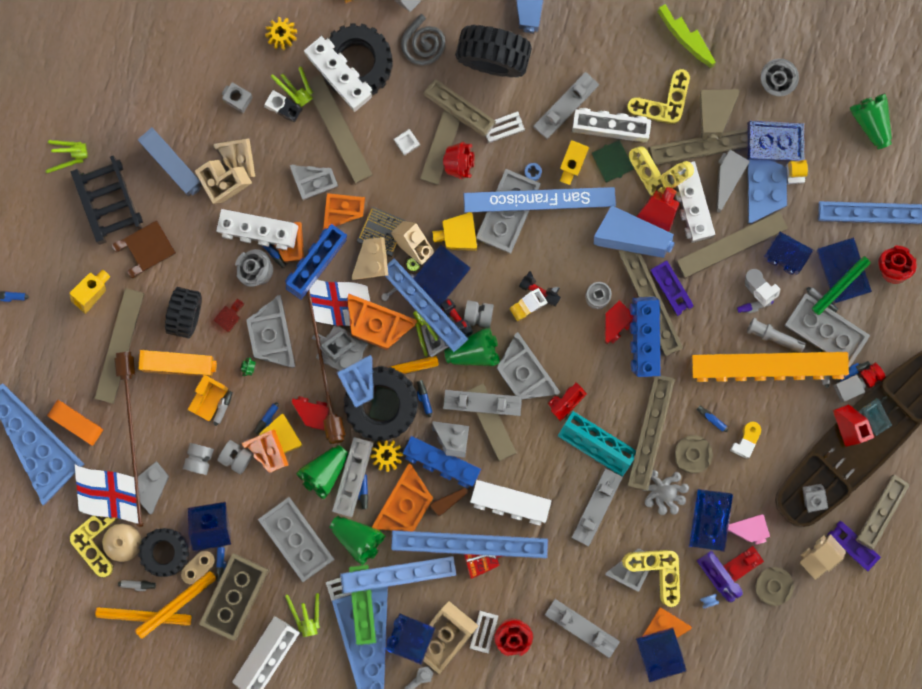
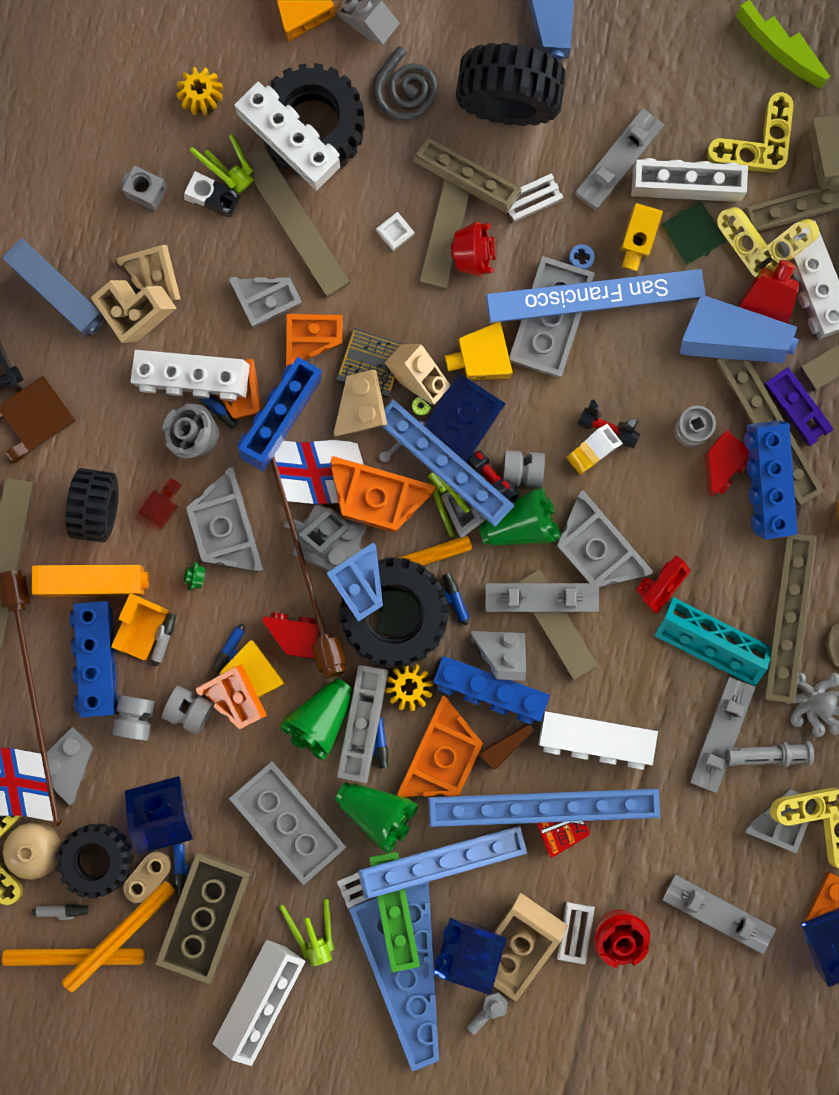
camera: 10 degrees left, 0 degrees up
(176, 417) = (94, 659): none -> blue brick
(636, 524) = (782, 754): none -> light grey pin

